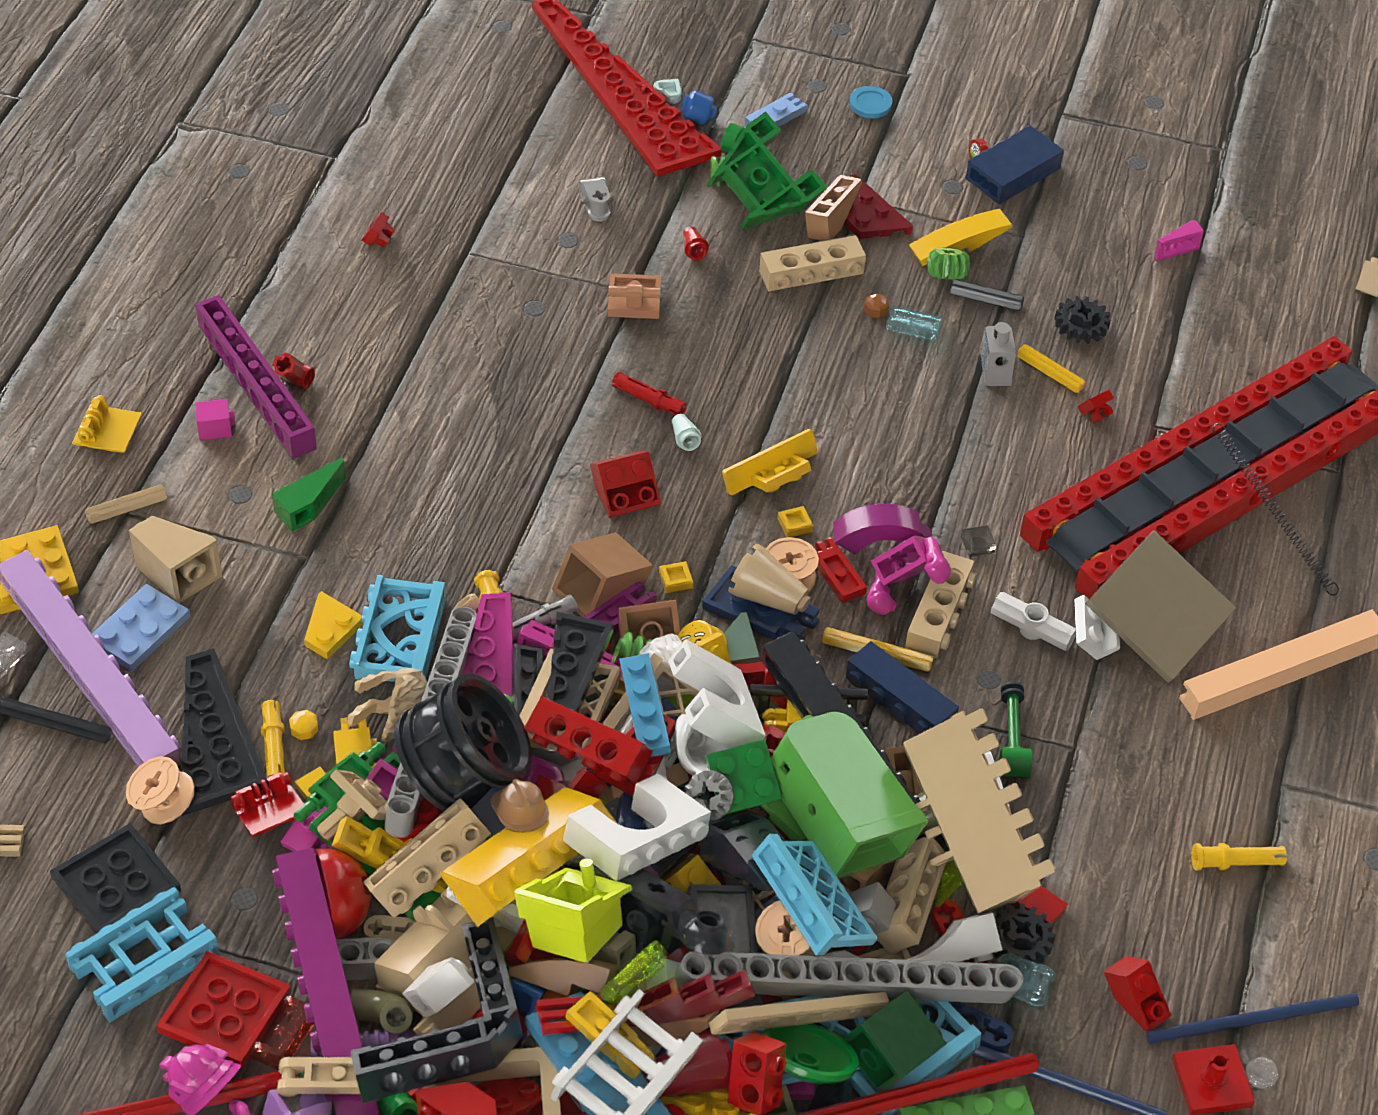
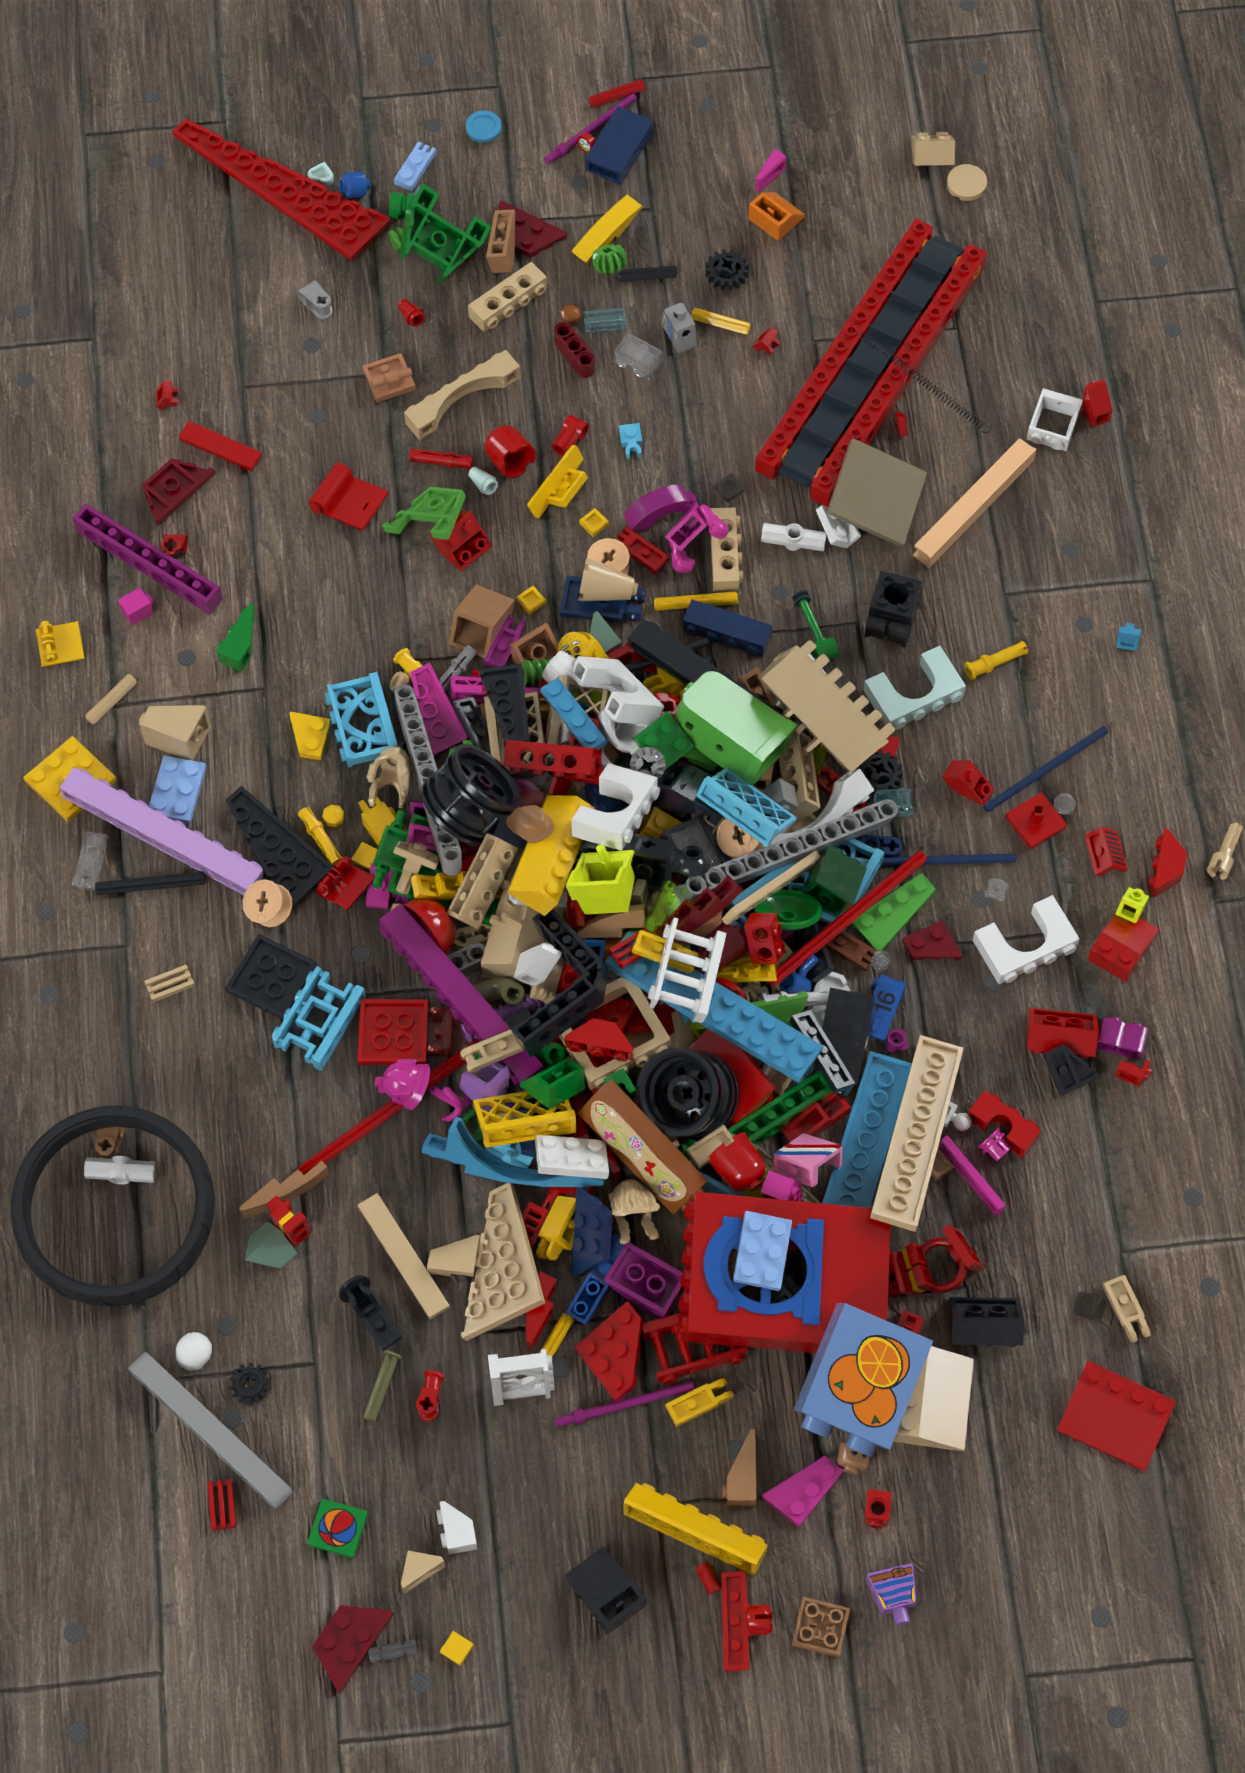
camera: 20 degrees left, 15 degrees up
(331, 318) = (173, 486): none -> dark red wing
(408, 299) = (220, 446): none -> red tile
(518, 395) = (347, 498): none -> red door
(608, 439) = (433, 505): none -> bright green wing
(731, 410) = (509, 451): none -> red cylinder
(756, 330) = (494, 373): none -> tan arch
(816, 418) = (572, 431): none -> red piece
(862, 338) = (577, 357): none -> dark red beam
(884, 451) = (631, 438): none -> medium azure plate
(934, 369) = (638, 356): none -> clear brick
(948, 149) = (562, 149): none -> magenta bar
(1032, 118) = (616, 93): none -> red axle
(1082, 870) = (900, 710): none -> light aqua arch
(1125, 741) = (893, 608): none -> black piece
(1163, 283) = (774, 214): none -> orange slope
(1225, 546) = (901, 423): none -> red tile

